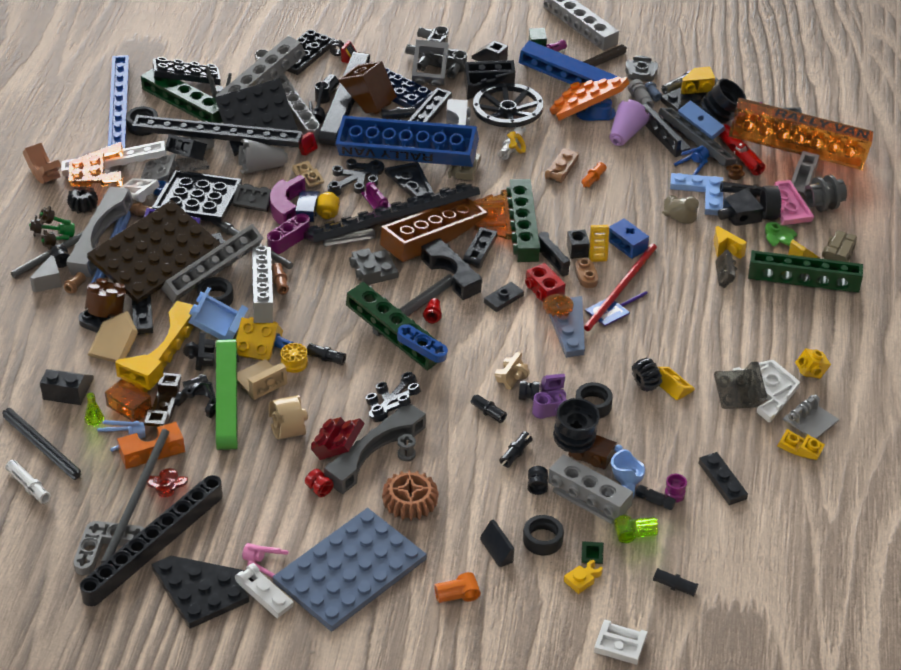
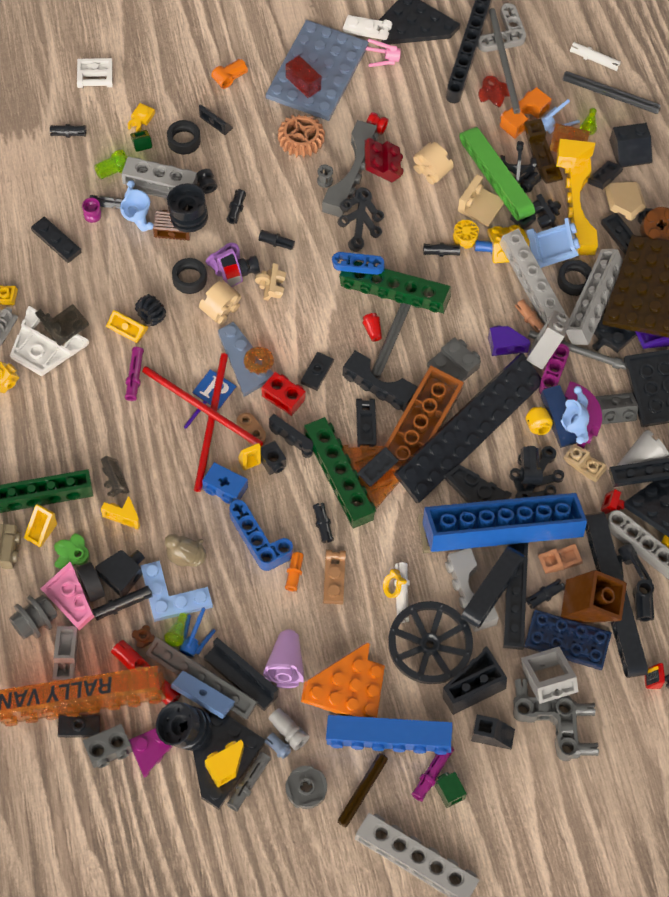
camera: 155 degrees right, 20 degrees up
(106, 369) = (605, 175): none -> black plate
(294, 242) = (548, 339): none -> window
(300, 180) = (577, 416): none -> light blue piece
(316, 264) = (505, 341): none -> dark purple slope
(359, 171) = (530, 471): none -> black piece
(374, 196) = (497, 452): magenta hinge -> none
(378, 538) = (303, 76): none -> clear red brick
(446, 105) = (493, 587): none -> black beam
(490, 204) = (377, 467): none -> black plate
(554, 195) = (323, 523): none -> black pin
(573, 359) = (220, 302): none -> tan brick
(613, 188) = (256, 534): none -> blue beam
(627, 293) = (201, 406): none -> red piece
(683, 334) = (133, 380): none -> magenta pin
(709, 159) = (175, 634): none -> clear neon green cone

